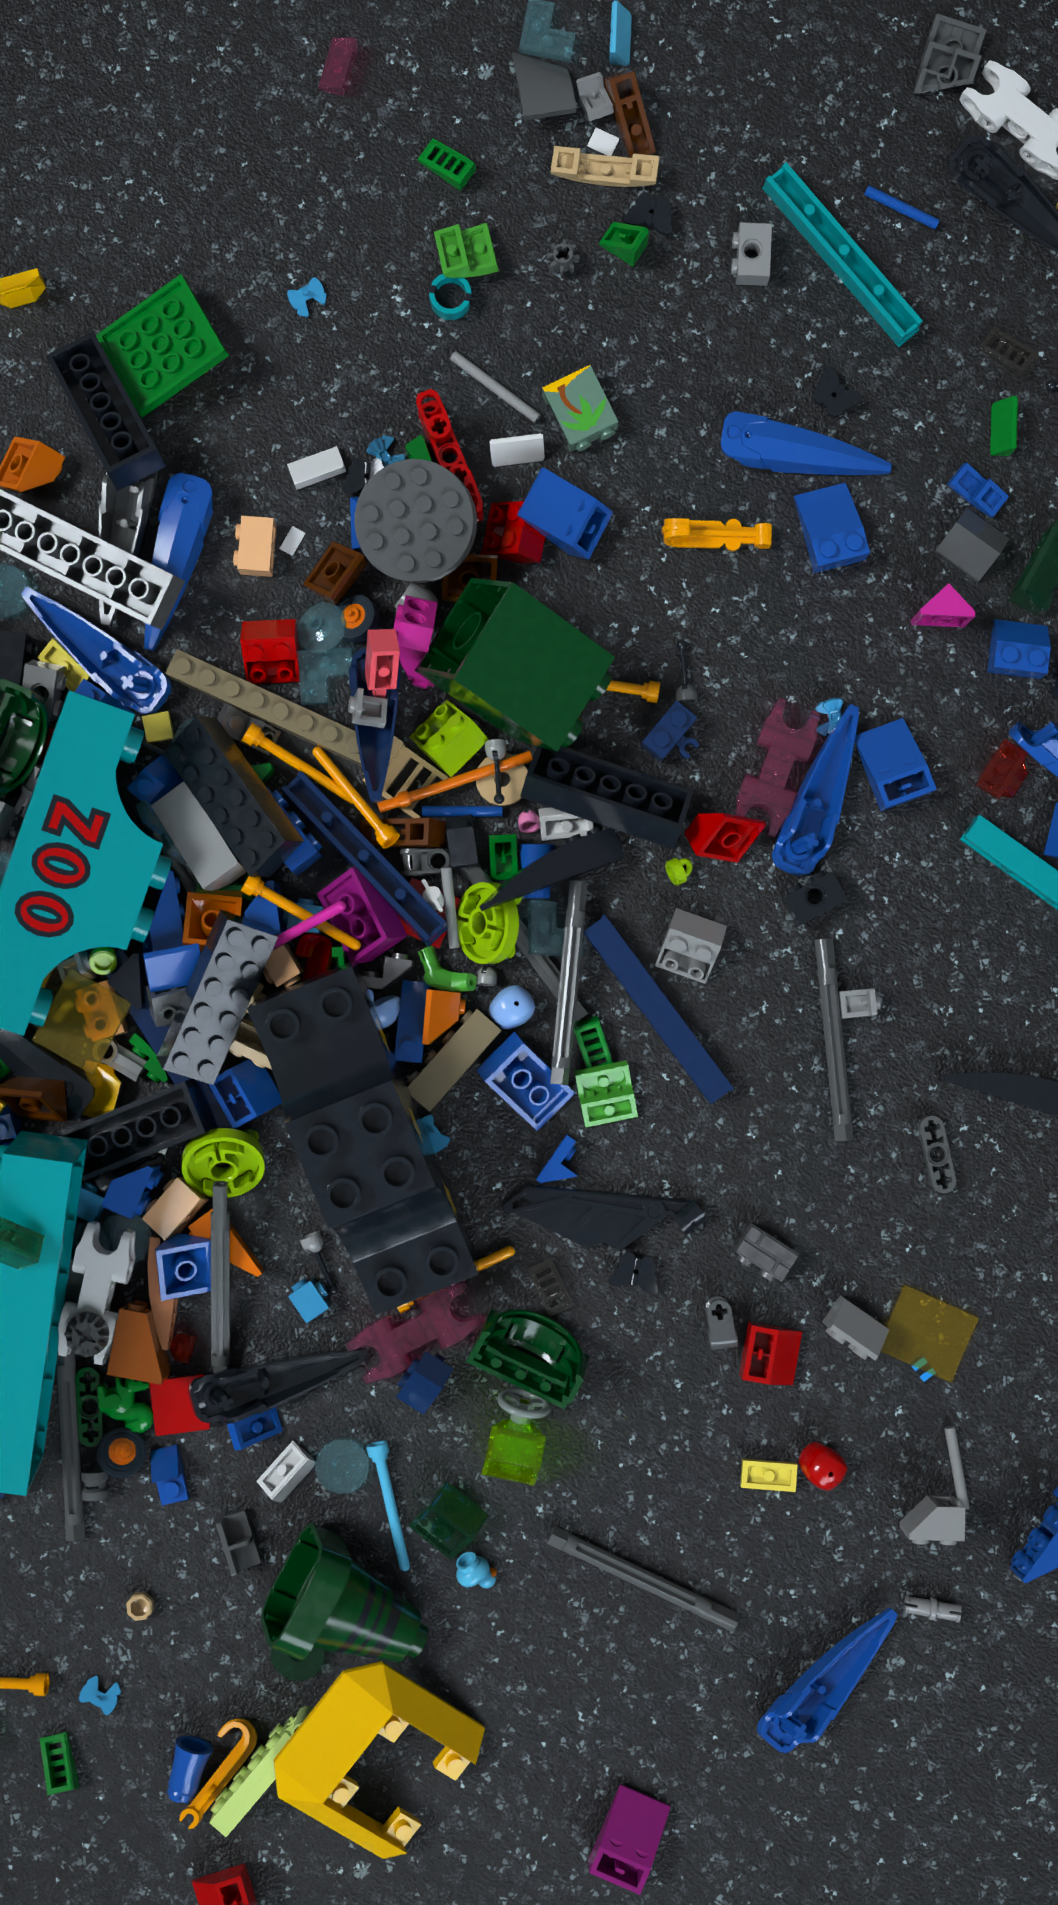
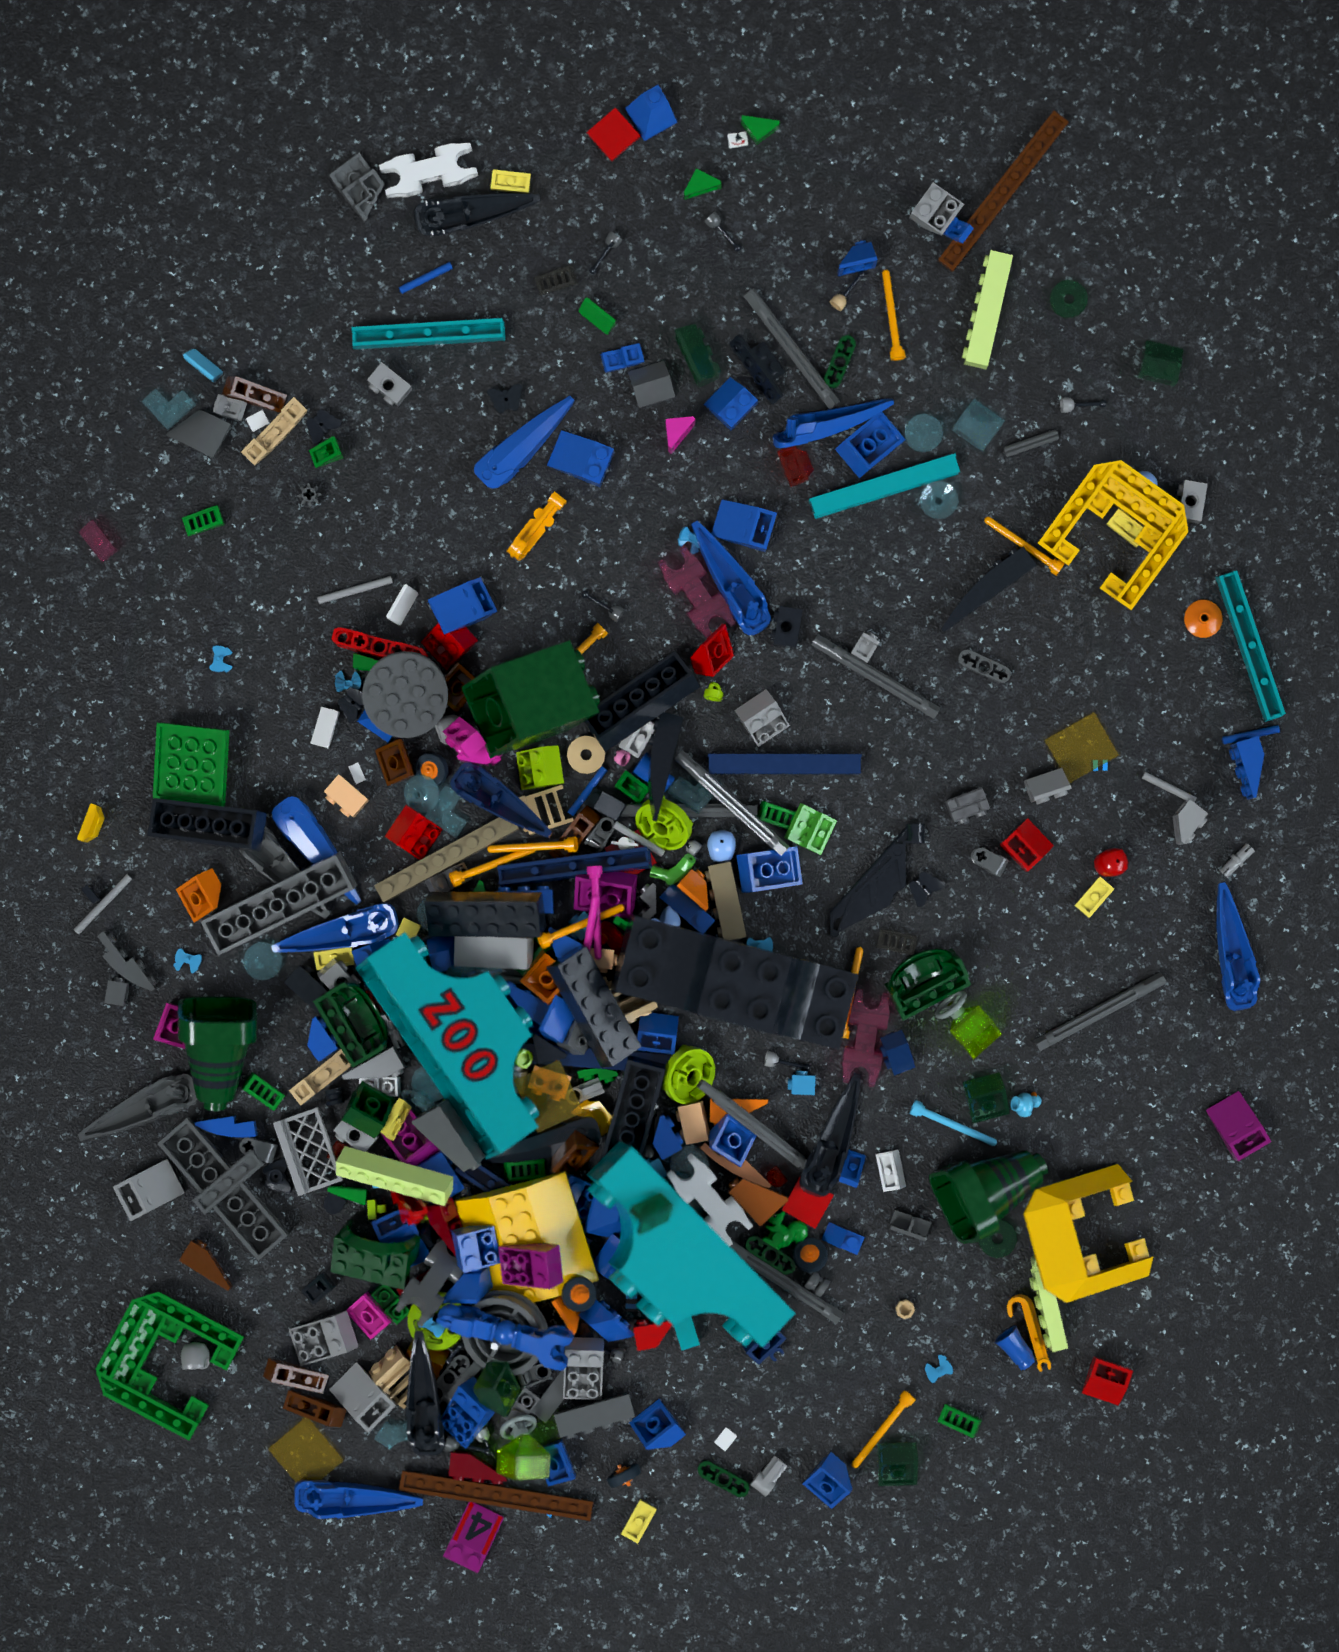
camera: 55 degrees left, 0 degrees up
(99, 1332) = (733, 1212): dark grey gear -> none
(342, 1465) = (910, 1135): clear light blue tile -> none
(367, 710) = (493, 801): light grey bracket -> none
(369, 886) = (594, 874): none -> dark pink piece
(381, 661) = (473, 773): coral hinge -> none
(405, 798) = (557, 818): orange bar -> none
(446, 313) = (295, 580): teal piece -> none
(466, 251) = (264, 548): bright green slope -> none
(496, 751) = (568, 746): hinge -> none
(554, 1168) = (831, 890): blue slope -> none
(581, 408) = (406, 550): sand green panel -> none
(670, 733) = (631, 638): dark blue brick -> none

